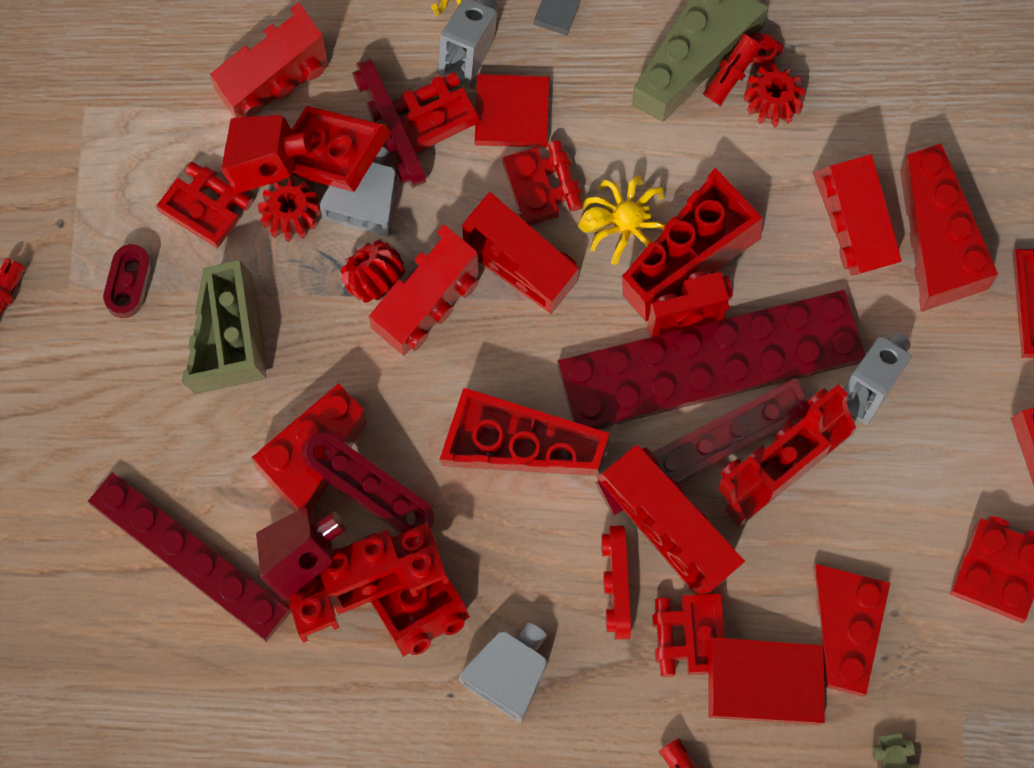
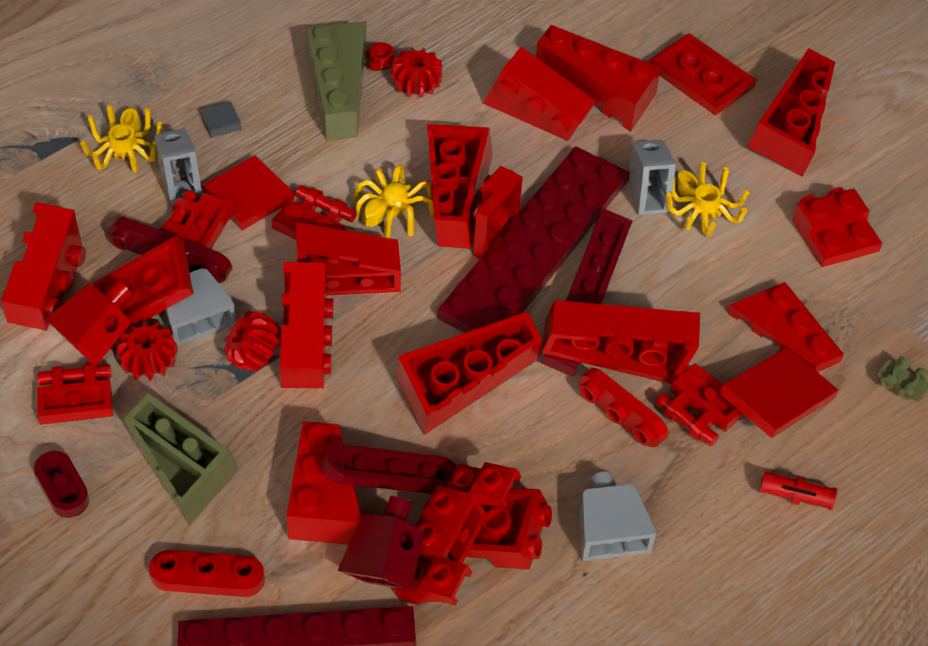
camera: 45 degrees left, 20 degrees down
(175, 462) = (221, 580): none -> red plate
(732, 70) = (376, 91): red pin -> none
(796, 450) = (648, 245): red bracket -> none
(905, 442) = (705, 199): none -> yellow animal

